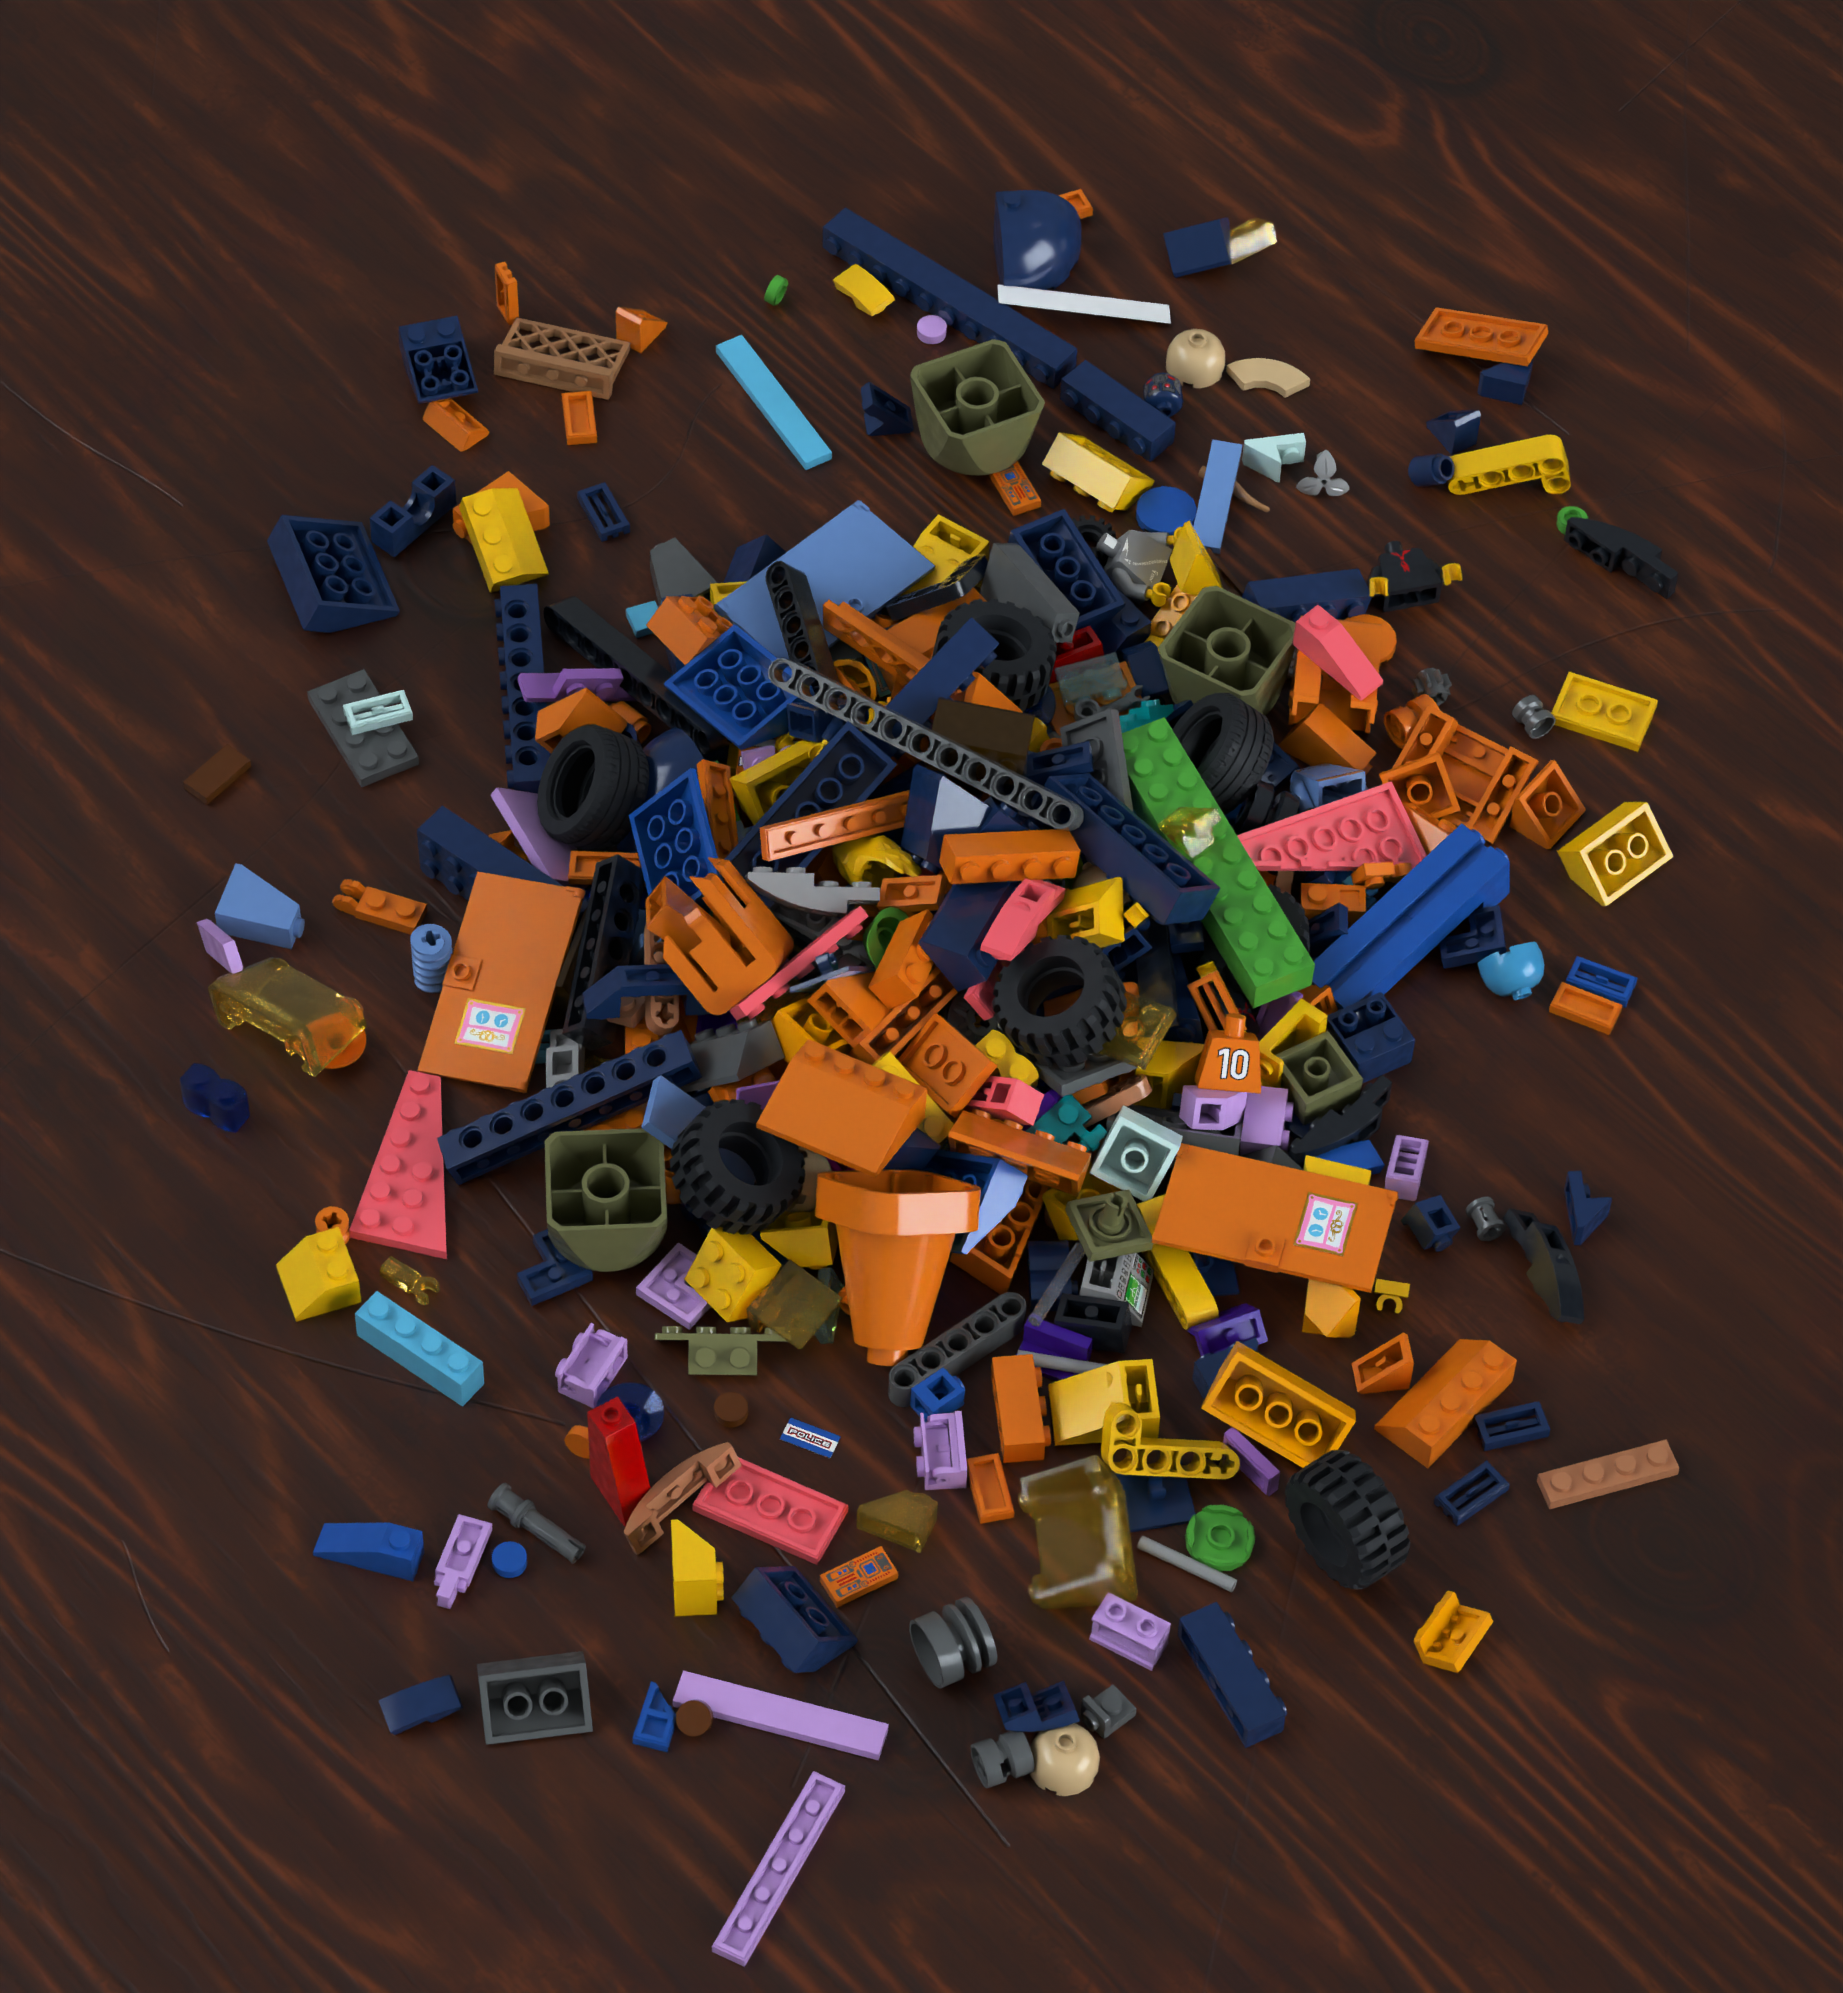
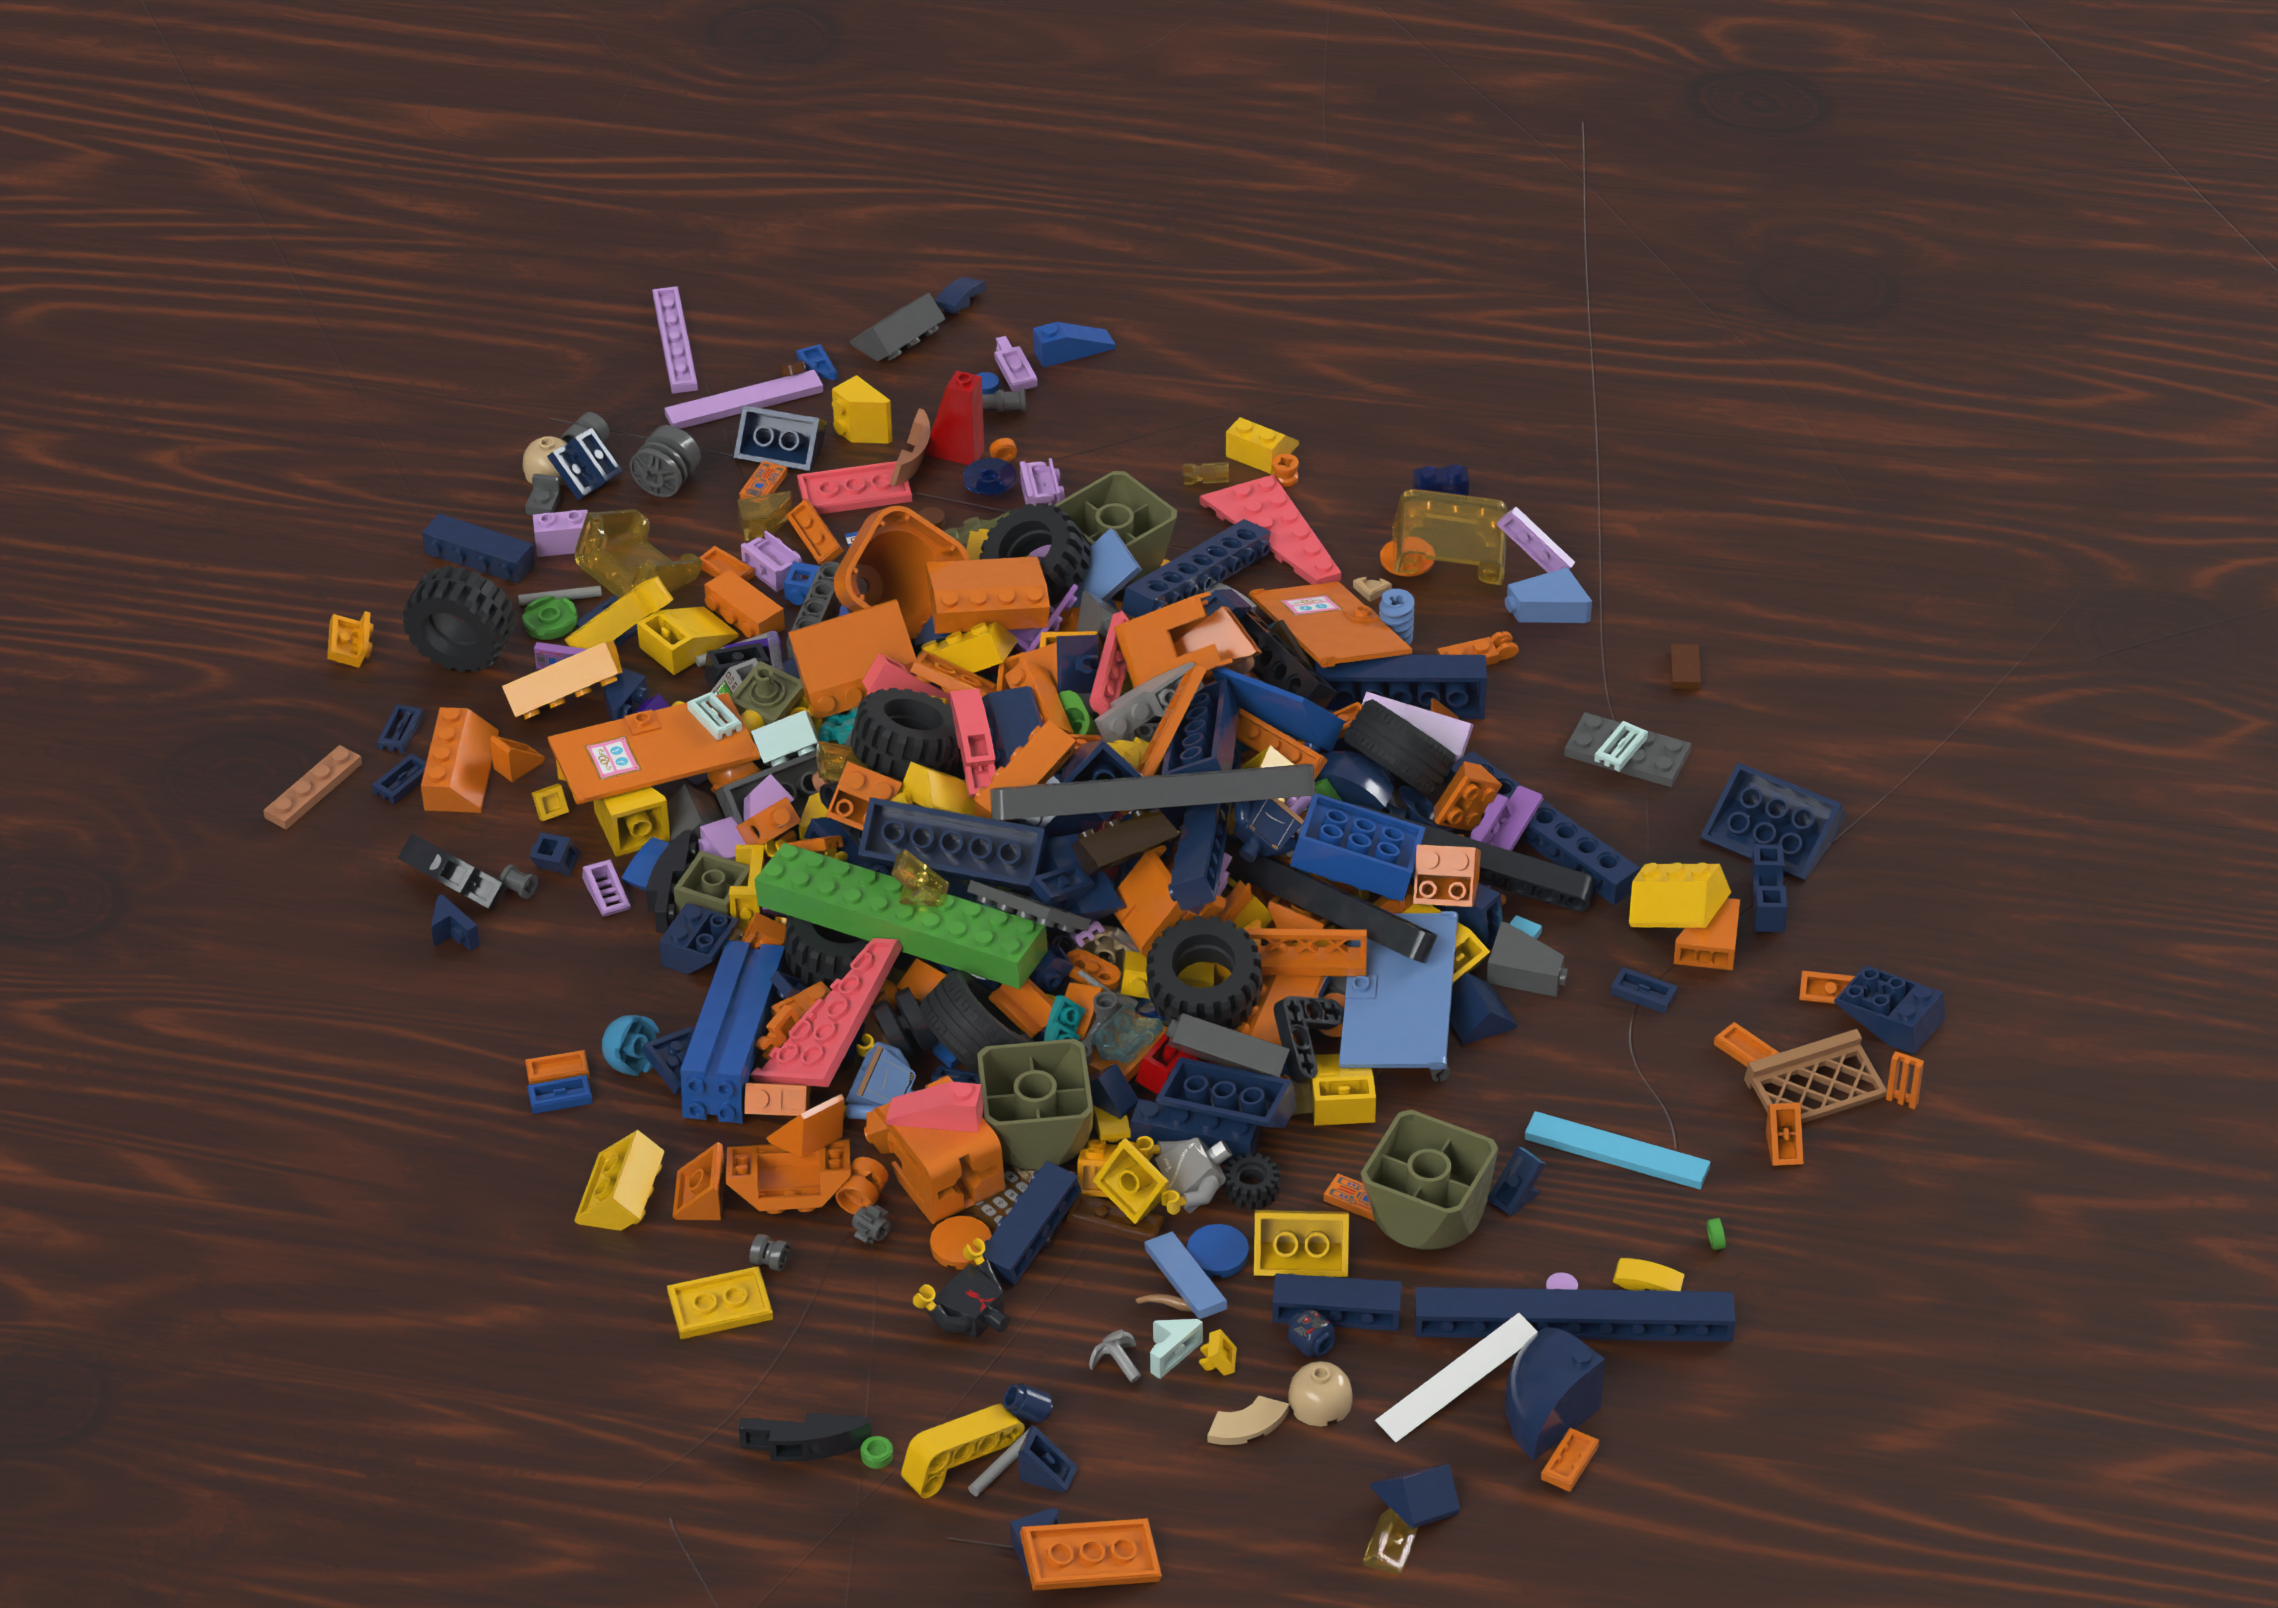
camera: 145 degrees right, 10 degrees down
(394, 1042) = (1371, 588): none -> tan tile
(419, 1348) = (1155, 437): medium azure brick -> none
(867, 1460) = (814, 532): none -> orange tile
(1153, 963) = (854, 791): none -> orange slope
(1191, 1231) = (709, 717): none -> light aqua tile
(1245, 427) = (1219, 1353): none -> yellow tile

